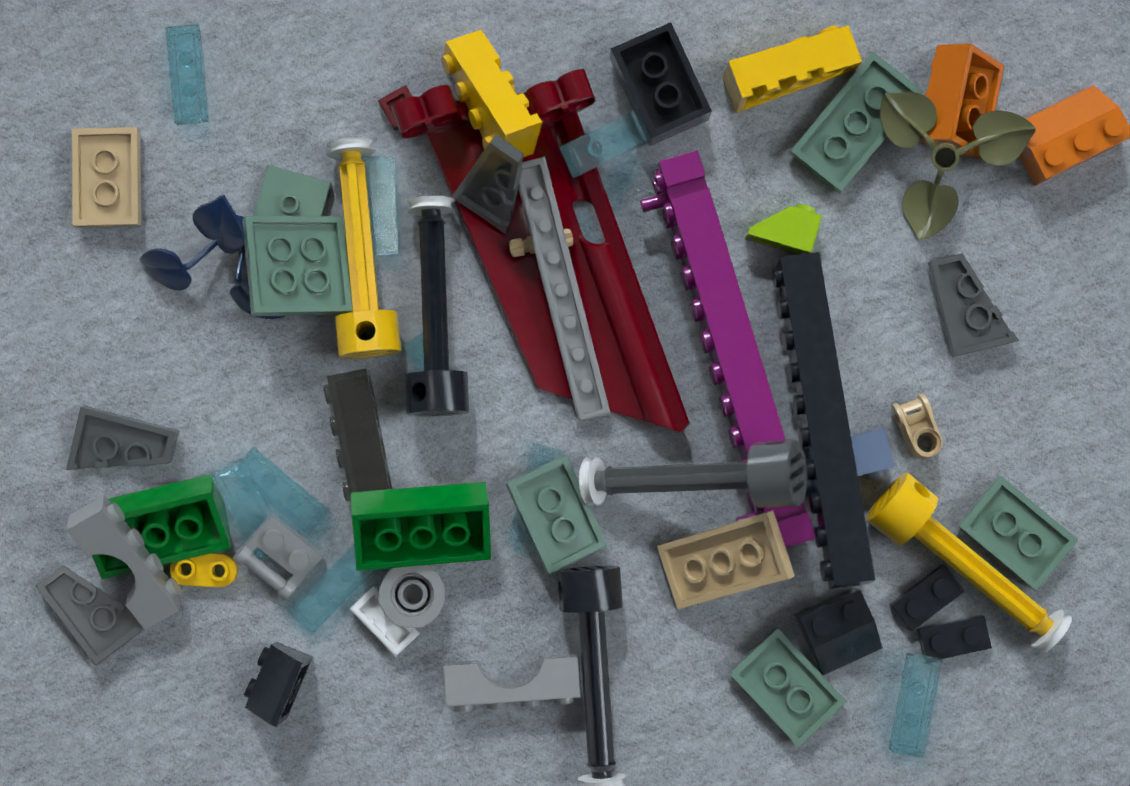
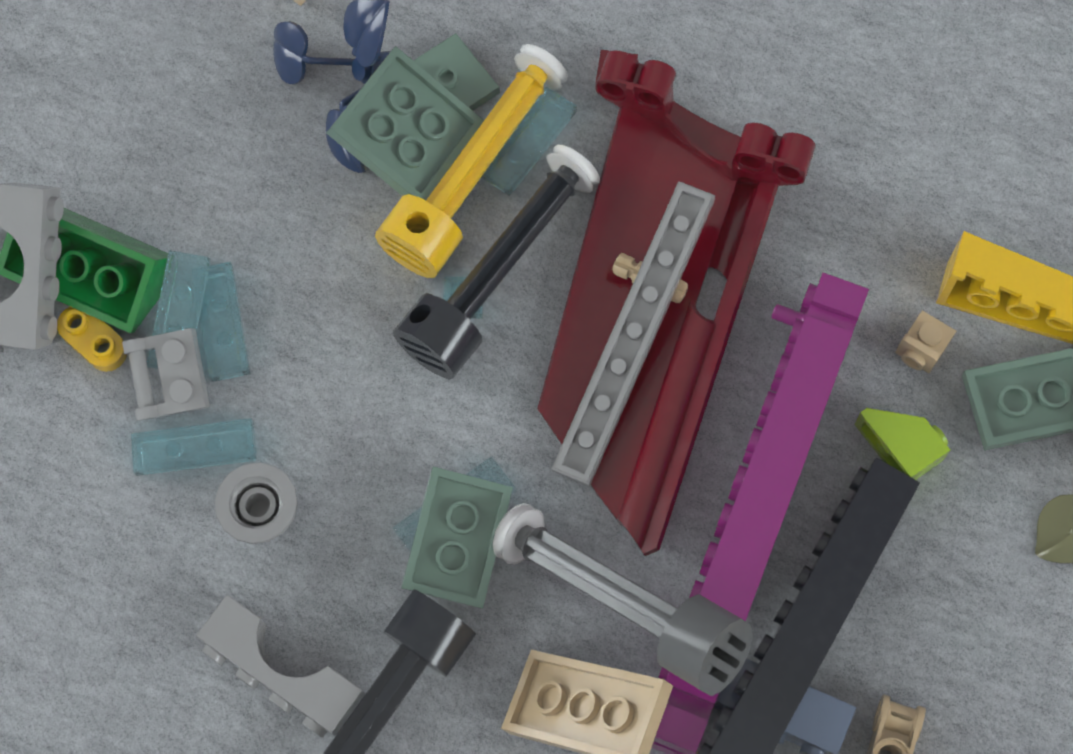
camera: 40 degrees right, 15 degrees down
(118, 440) = (118, 167): dark grey wing -> none
(277, 682) = (63, 490): black slope -> none
(358, 431) = (332, 327): clear smoke brick -> none
(371, 614) = (206, 531): white plate -> none
(421, 526) = (317, 442): green brick -> none
(490, 92) = (706, 114): yellow wedge -> none
(493, 184) = (645, 182): dark grey wing -> none
(603, 144) = (781, 227): clear light blue tile -> none
(660, 84) = (880, 217): black brick -> none
(750, 148) = (925, 342): none -> tan bracket
(965, 308) = (1034, 659): dark grey wing -> none

